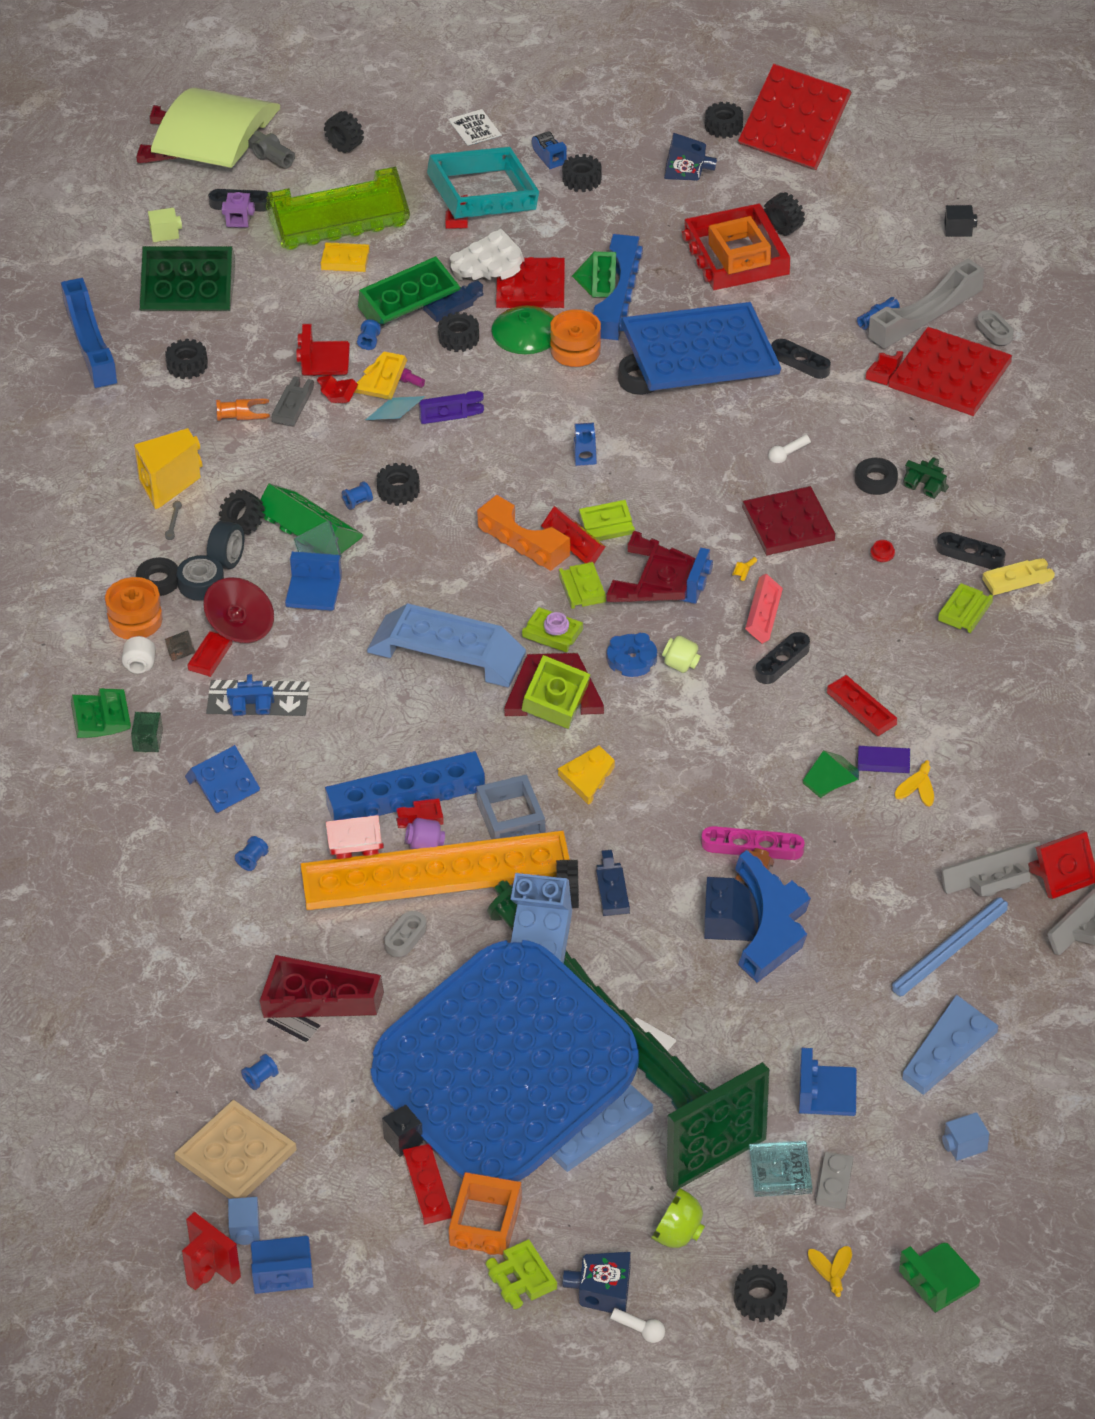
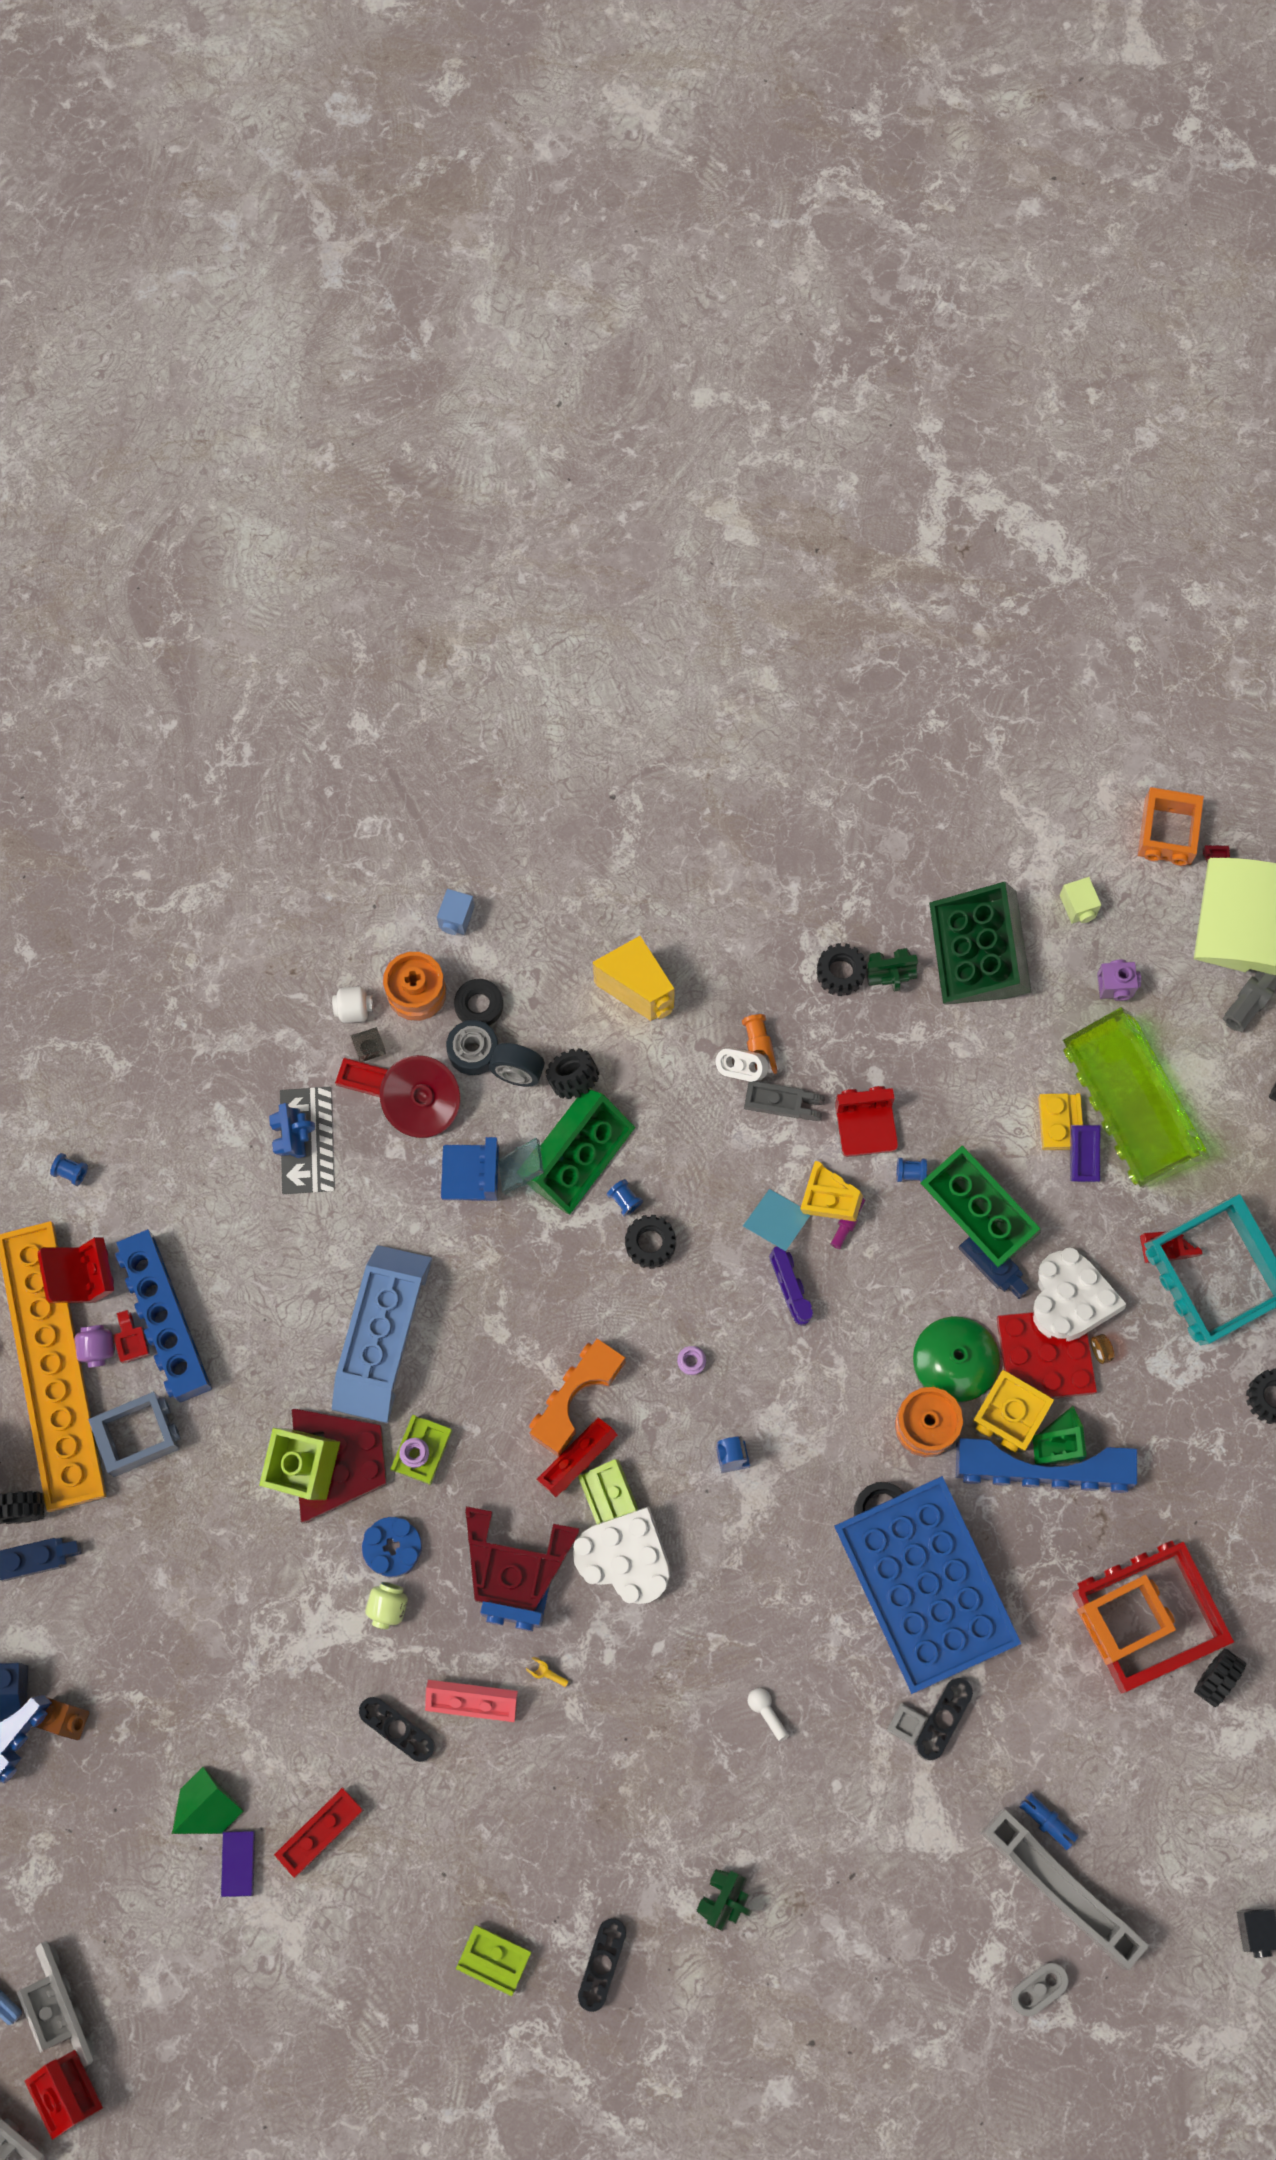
camera: 85 degrees right, 25 degrees up
(68, 582) = (455, 912): none -> medium blue brick
(82, 318) = (826, 870): blue arch -> none
(96, 181) = (1171, 802): none -> orange window
(100, 713) = (269, 982): green slope -> none
(147, 732) = (235, 1033): clear green brick -> none
(169, 534) = (551, 1004): dark grey hinge -> none
(195, 327) = (892, 970): none -> dark green hips
(218, 196) = (1159, 990): black beam -> none
(224, 779) = (173, 1121): blue bracket -> none
(257, 416) = (744, 1064): none -> white plate
(337, 391) = (808, 1148): red slope -> none
(375, 243) = (1085, 1153): none -> dark purple tile
(458, 331) = (937, 1260): black tyre -> none
(502, 468) = (691, 1351): none -> lavender plate
(532, 248) = (1102, 1349): none -> clear orange tile
(574, 291) = (1012, 1412): none -> yellow plate
(582, 585) = (503, 1477): lime plate -> none
(587, 772) = (203, 1514): yellow wing -> none
(658, 510) = (624, 1554): none -> white plate
(753, 838) = (107, 1713): dark pink beam -> none
(788, 520) = (637, 1722): dark red plate -> none
(802, 378) = (906, 1724): none -> light grey tile
(873, 486) = (747, 1832): black tyre -> none
(882, 551) = (588, 1847): red plate -> none
(884, 367) = (939, 1834): red slope -> none
(918, 780) = (206, 1912): yellow piece -> none
(950, 371) = (947, 1927): red plate -> none
(1017, 576) = (555, 2026): light yellow hinge -> none

